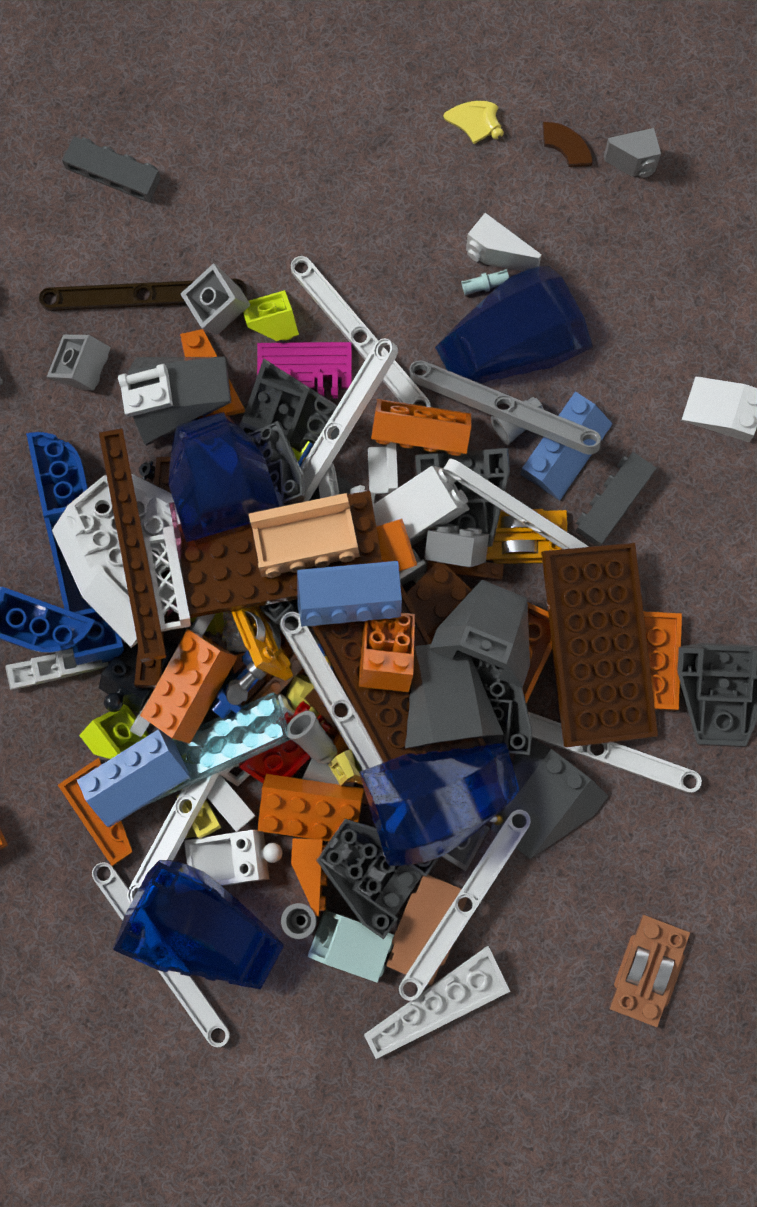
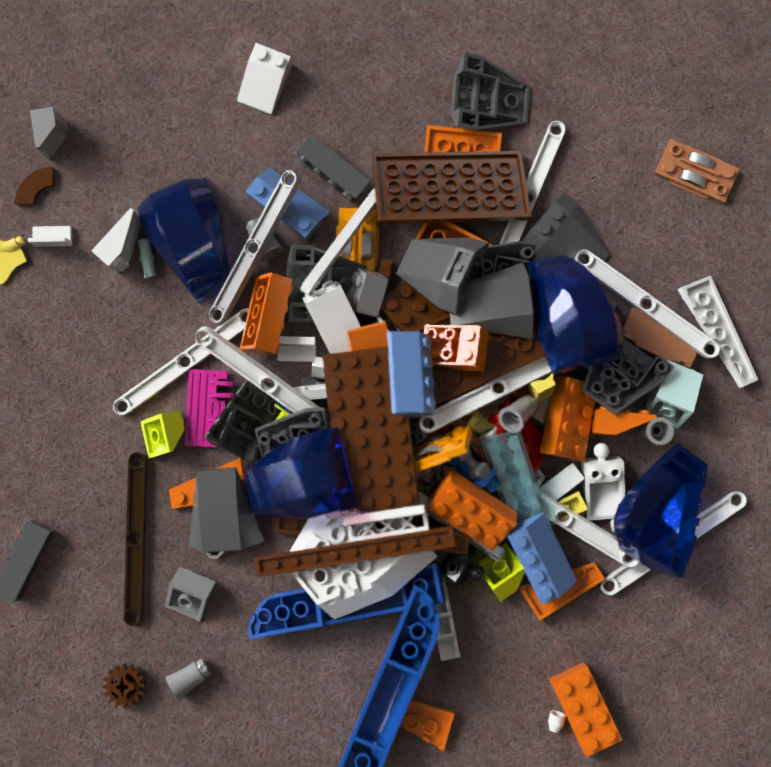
camera: 90 degrees left, 5 degrees up
(147, 470) = (285, 539): black piece -> none
(148, 397) = (227, 534): white plate -> none
(215, 300) = (146, 478): light grey slope -> none
(304, 535) = (360, 408): light nougat panel -> none
(506, 169) = (51, 236): none -> white panel

